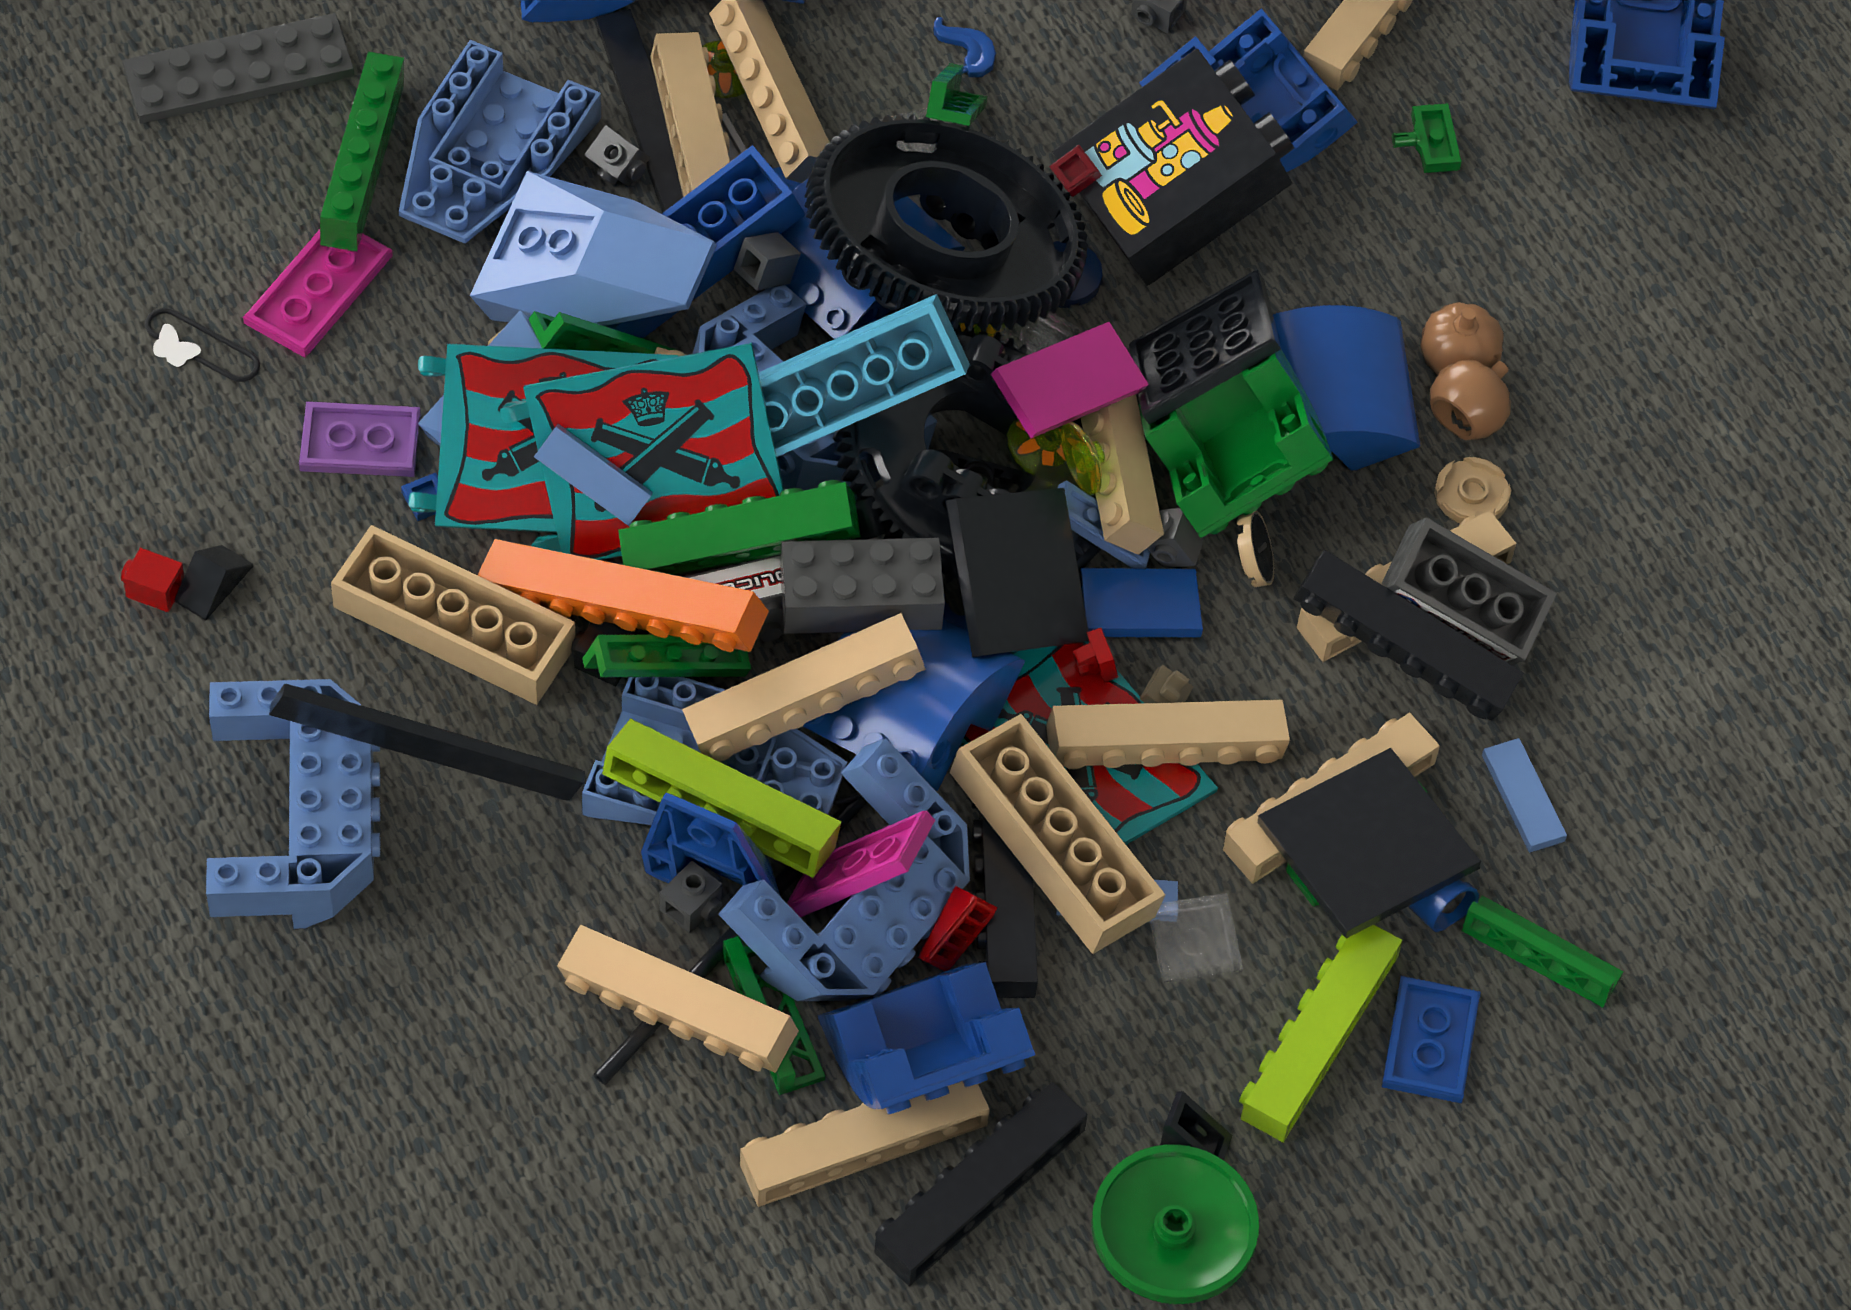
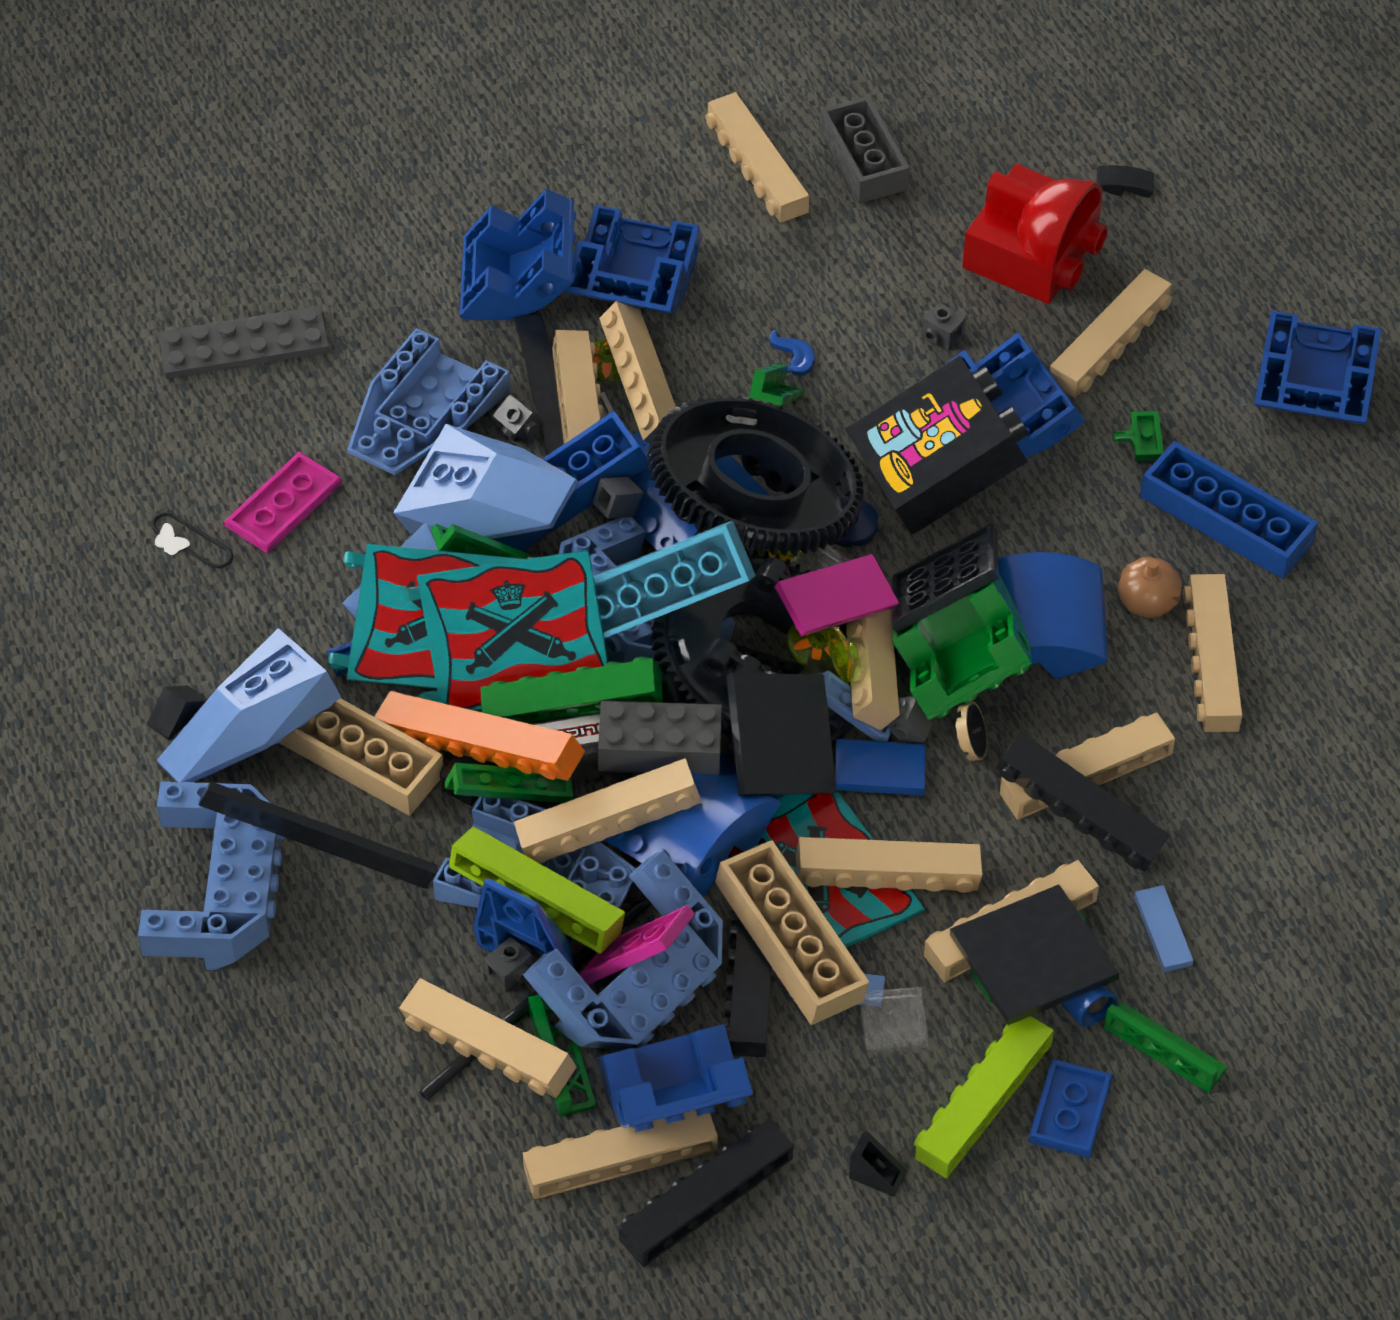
camera: 10 degrees right, 5 degrees down
(152, 579) = (131, 707): red brick -> none
(316, 577) = (251, 710): none -> medium blue wedge
(360, 439) = (300, 614): medium lavender tile -> none
(362, 152) = (326, 405): green brick -> none
(593, 474) = (465, 644): medium blue tile -> none
(961, 923) = (711, 984): red slope -> none
(1075, 171) = (860, 443): dark red tile -> none
(1096, 657) = (839, 804): red tile -> none
(1166, 687) = (893, 830): dark tan tile -> none
(1175, 1224) = (852, 1233): green dish -> none
(1467, 500) = (1163, 701): tan tile -> none
(1469, 590) = (1133, 770): dark grey brick -> none
(1475, 397) = (1154, 627): medium nougat piece -> none
(1551, 425) = (1214, 653): none -> tan brick
(1552, 232) = (1228, 509): none -> blue brick

